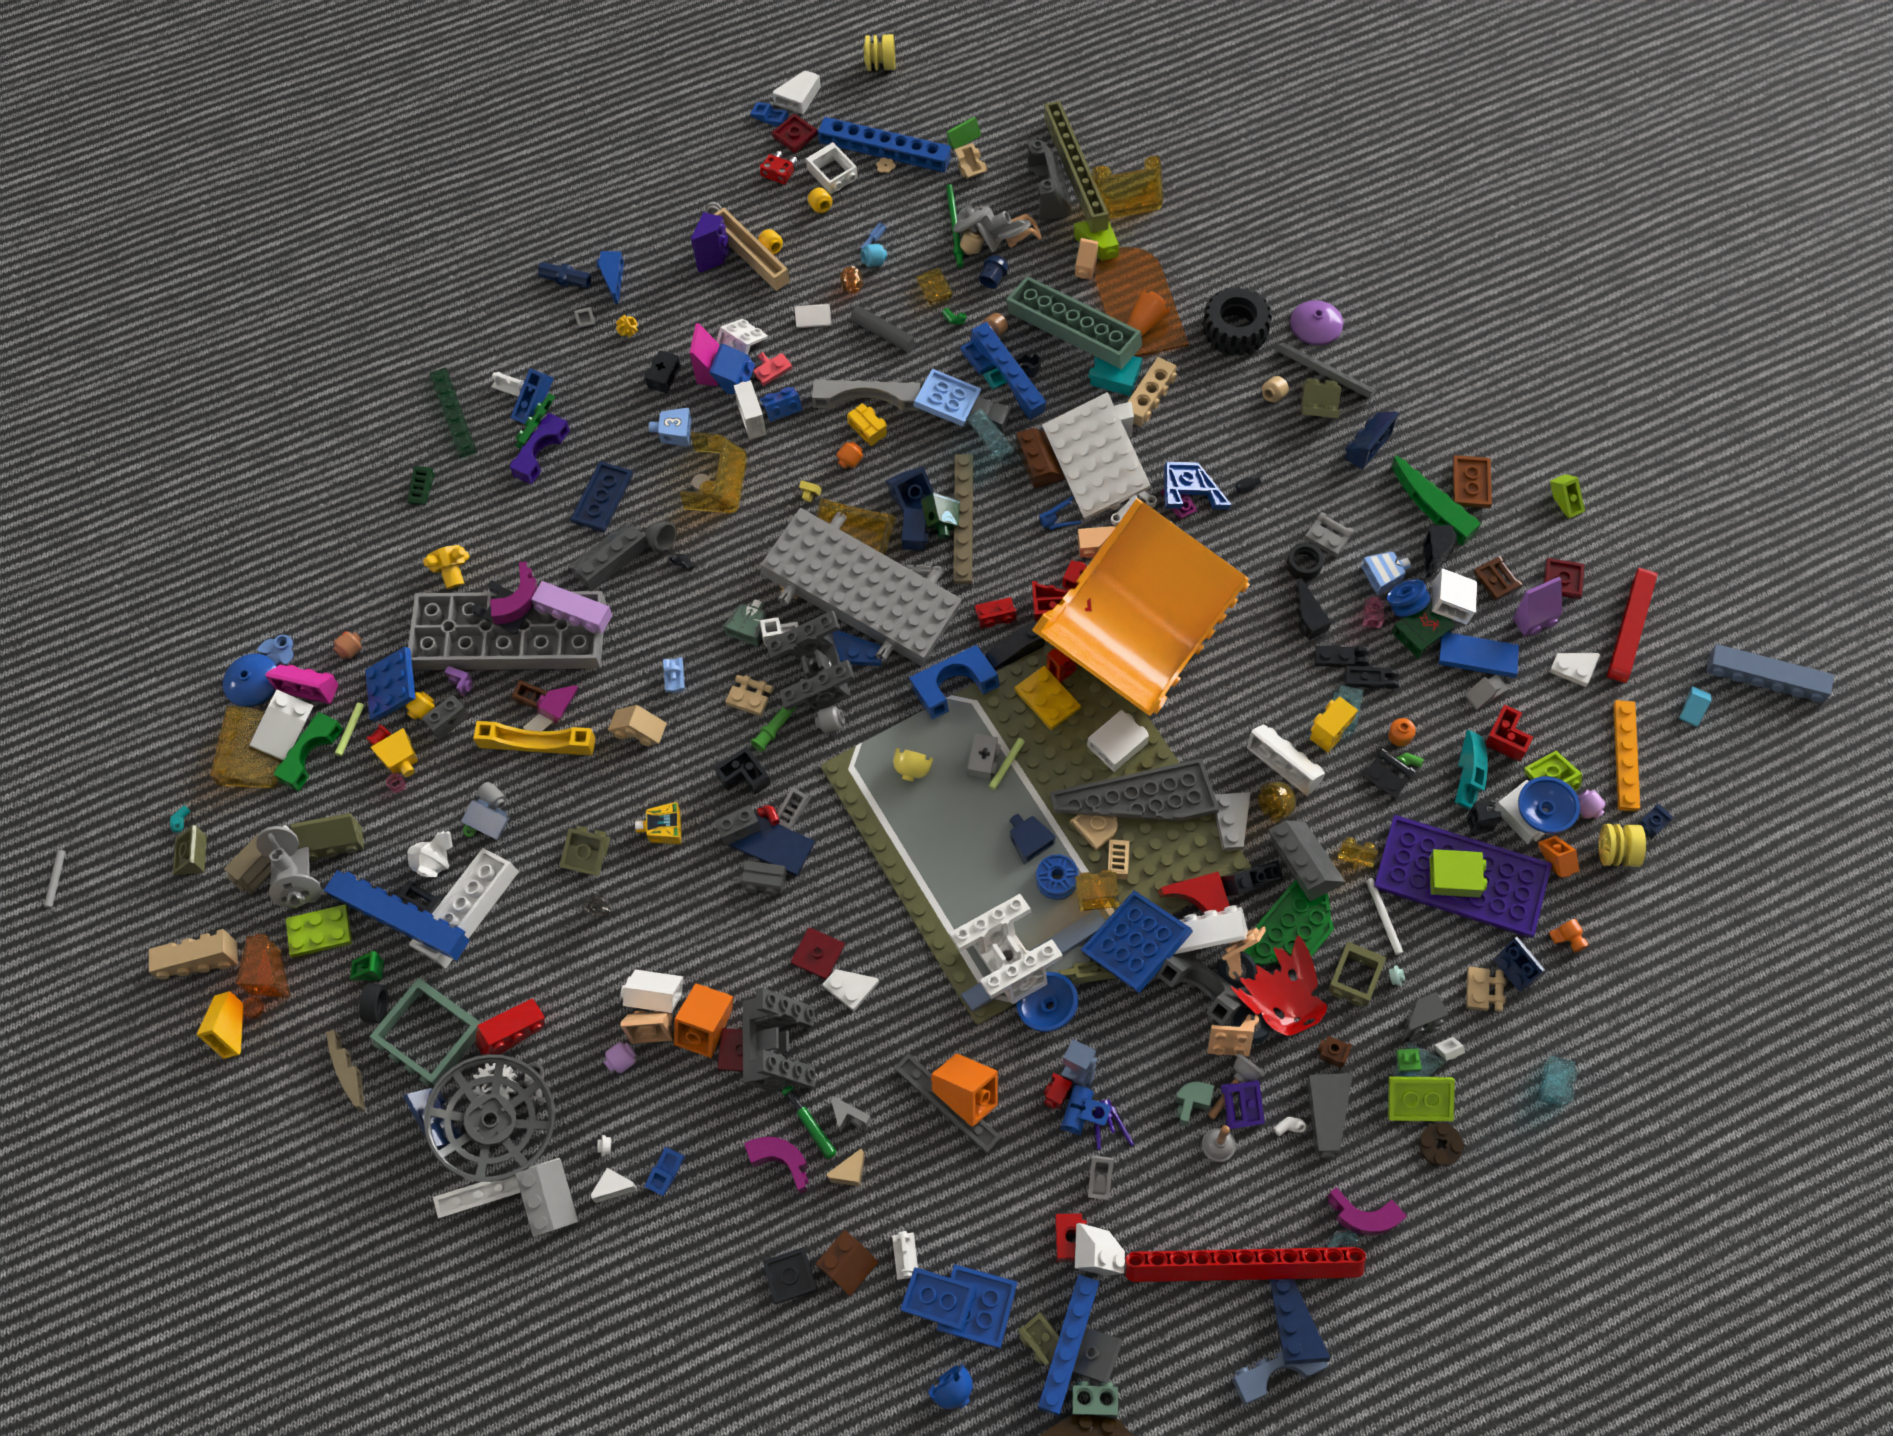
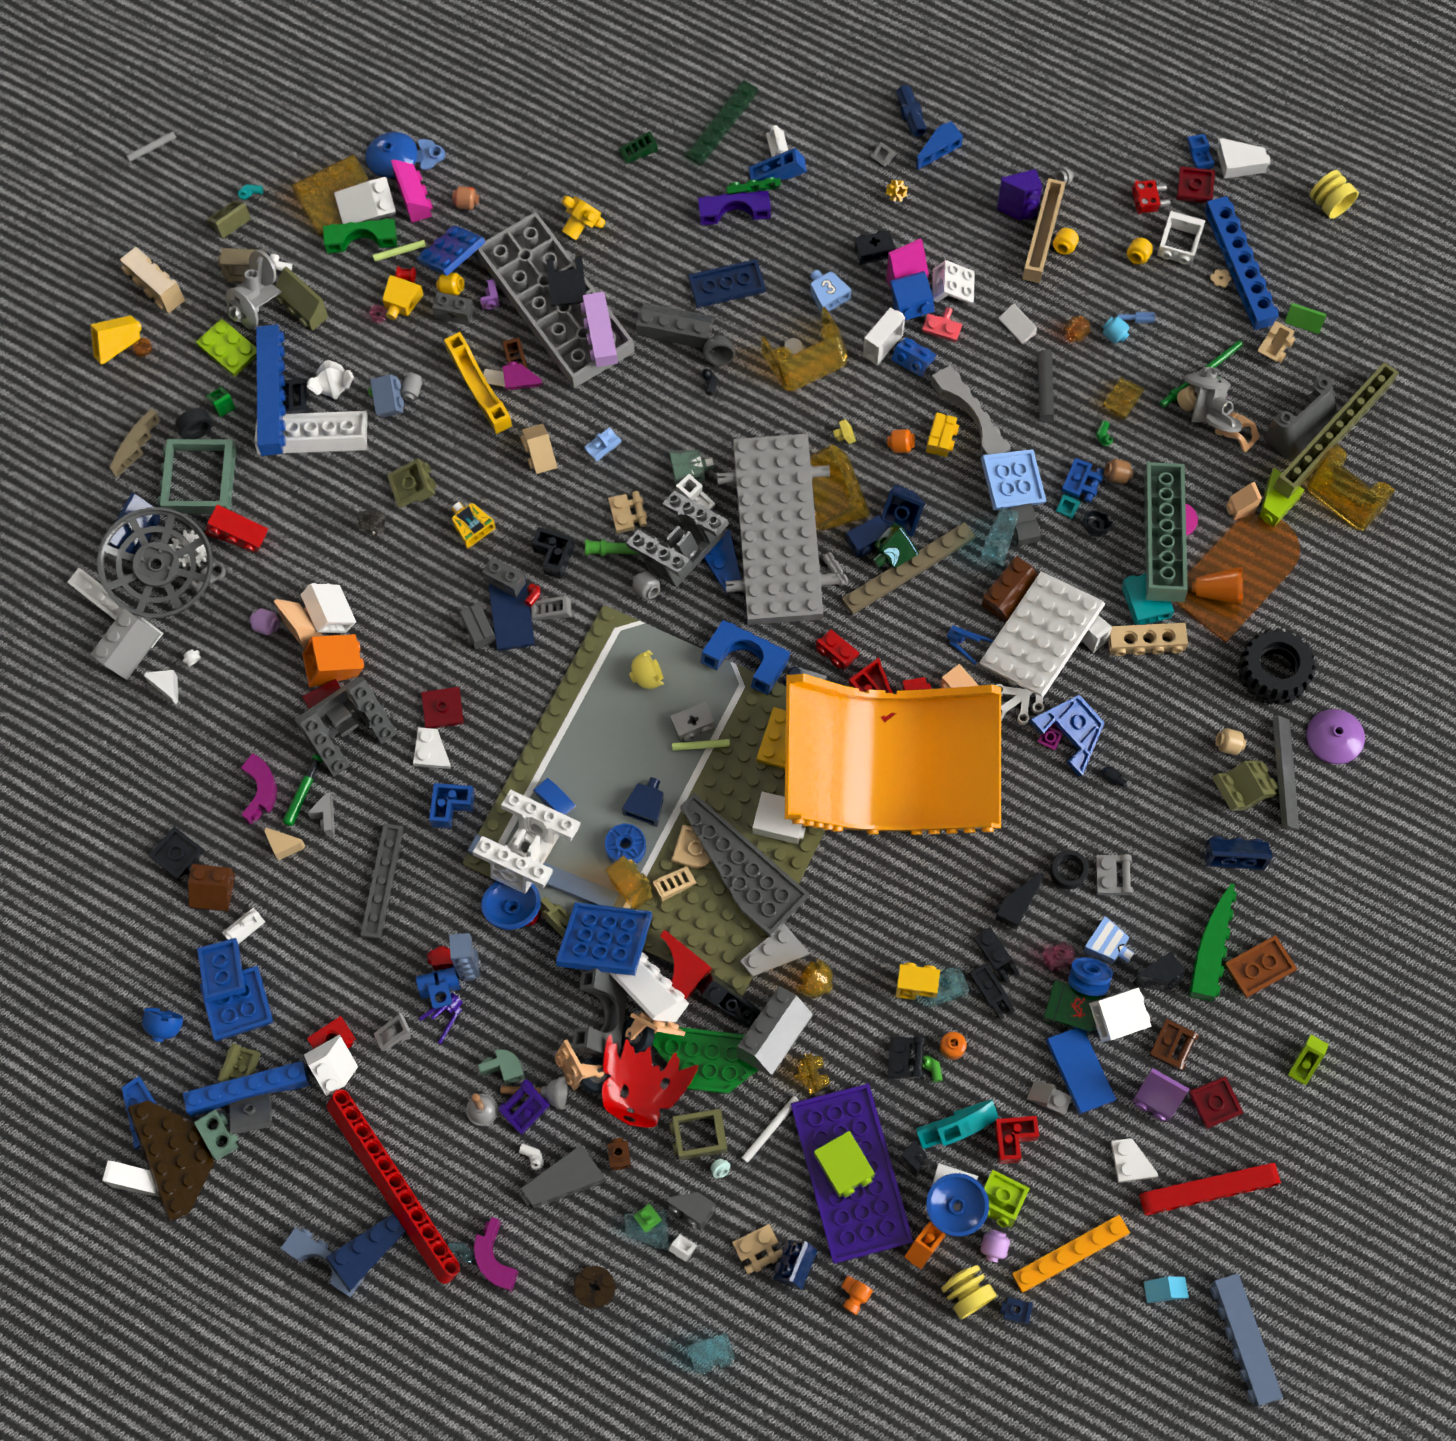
camera: 55 degrees right, 5 degrees up
(262, 968) = (172, 330): clear orange slope -> none
(519, 603) = (574, 289): magenta arch -> none
(665, 1171) = (200, 713): blue slope -> none
(911, 998) = (447, 799): none -> blue brick
(966, 1087) = (398, 886): orange slope -> none
(972, 907) = (553, 796): none -> blue slope
(994, 269) = (1173, 434): dark blue piece -> none
(1023, 389) = (1076, 510): blue arch -> none
(1285, 759) = (860, 962): white slope -> none
(1421, 1098) = (620, 1247): lime plate -> none

